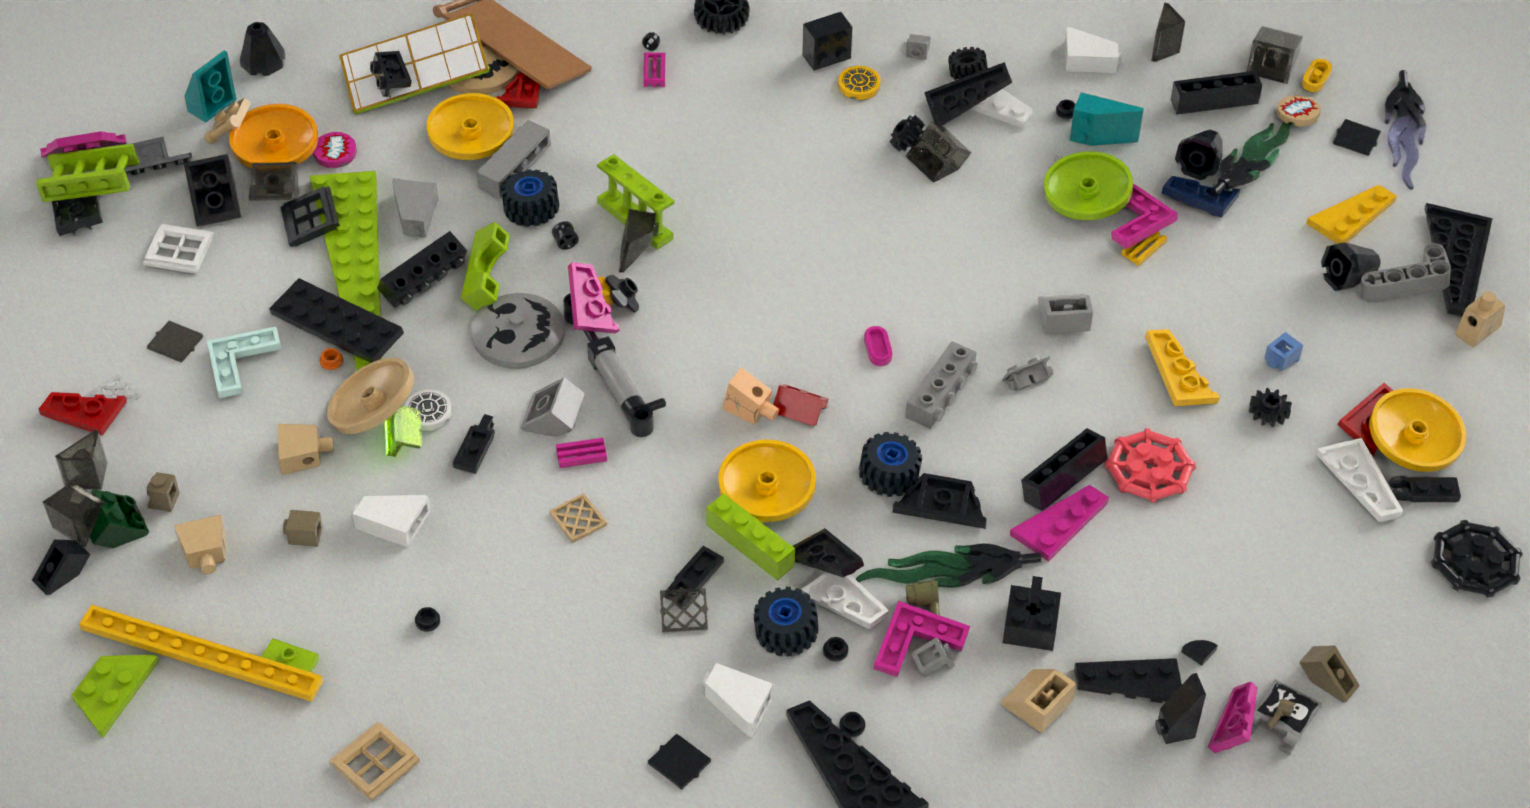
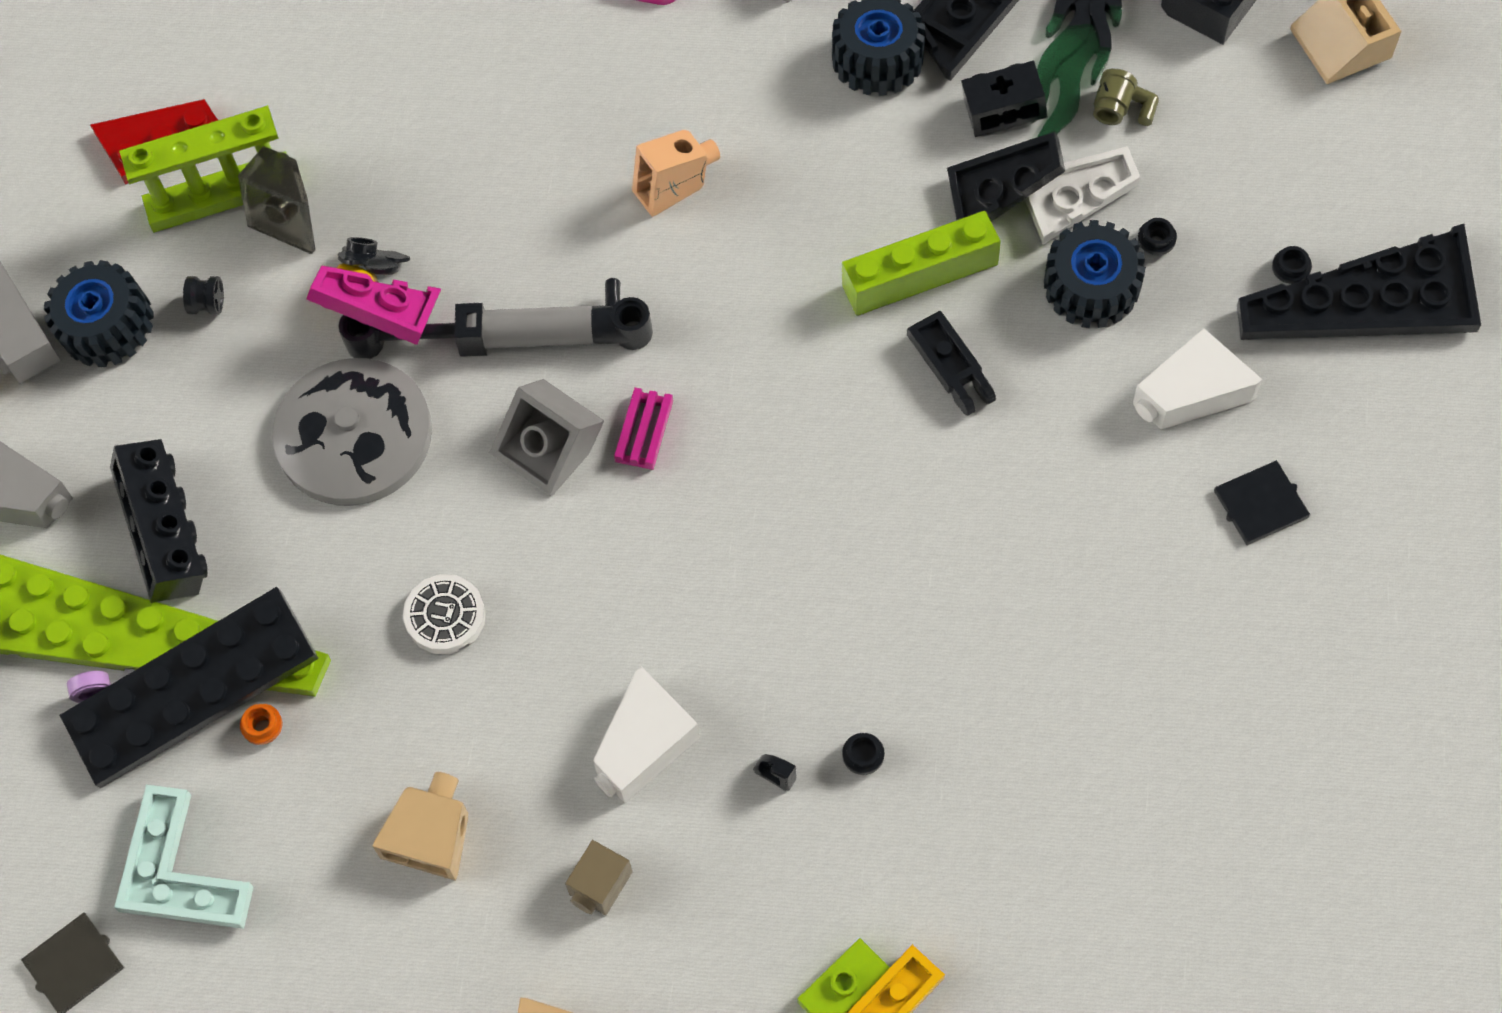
camera: 60 degrees left, 15 degrees up
(320, 281) = (87, 684): none -> lavender tile
(370, 396) = (391, 682): tan dish -> none
(389, 776) = (1060, 935): tan piece -> none
(398, 585) = (776, 771): none -> black tile
(403, 429) = (472, 664): clear neon green panel -> none
(475, 445) = (558, 568): black hinge -> none
(487, 248) = (167, 408): lime arch -> none
(568, 504) = (731, 482): tan window -> none
(660, 176) = (149, 126): none -> red wing
(663, 611) = (985, 385): clear smoke window -> none
(768, 479) = (833, 201): yellow dish -> none
(799, 404) = (706, 111): panel -> none
(887, 537) = (1004, 98): none -> black brick
(915, 621) = (1160, 134): dark pink plate -> none
(933, 656) = (1225, 127): light grey bracket -> none

